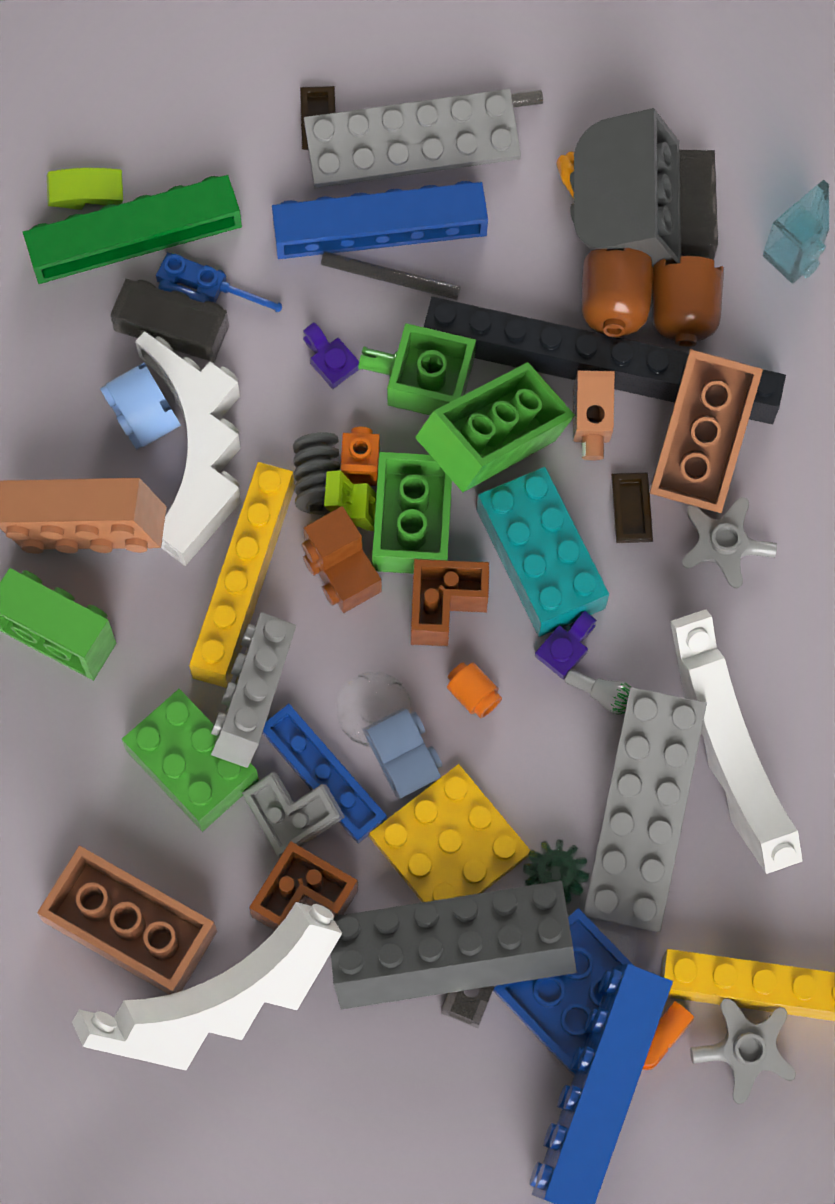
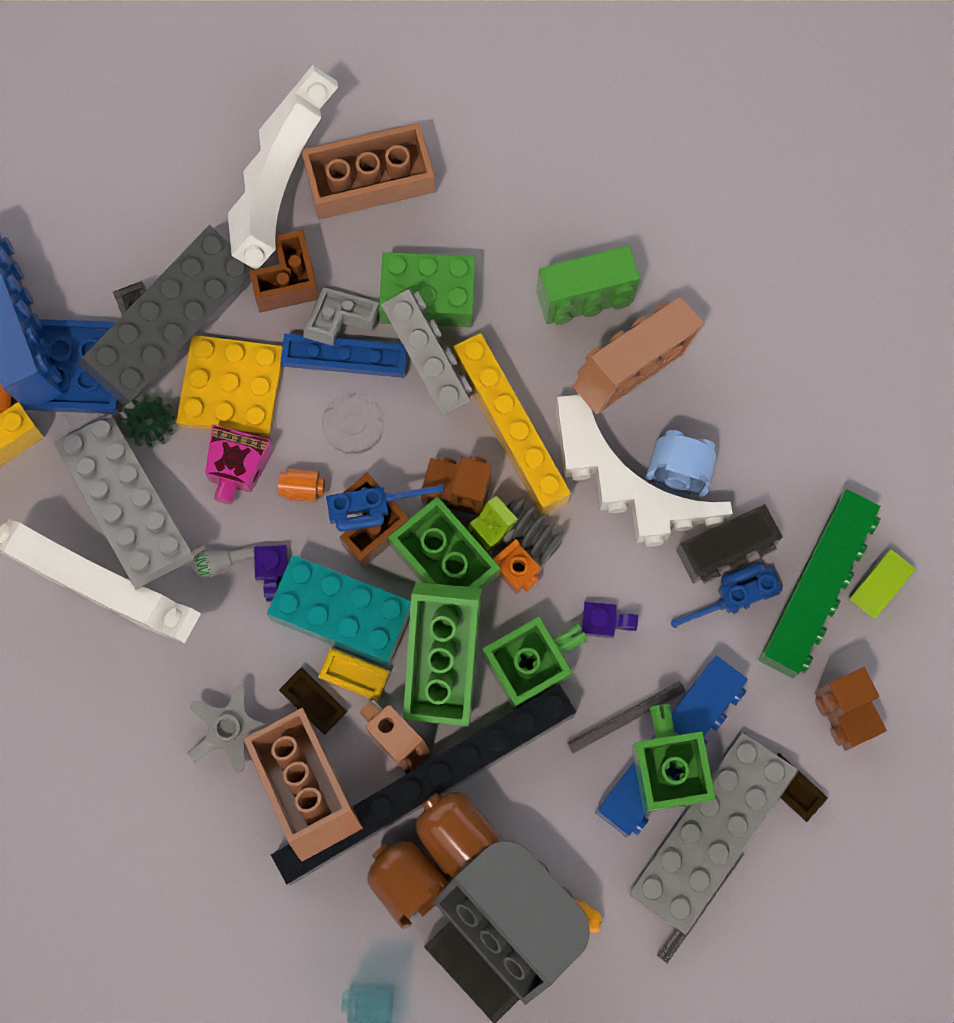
camera: 135 degrees right, 5 degrees up
(214, 123) = (851, 709): none -> dark orange brick
(402, 752) = (306, 405): sand blue brick -> none
(403, 184) = (685, 753): none -> bright green brick
(431, 597) = (364, 501): none -> blue piece
(511, 763) = (235, 461): none -> torso
(580, 498) = (354, 674): none -> yellow tile

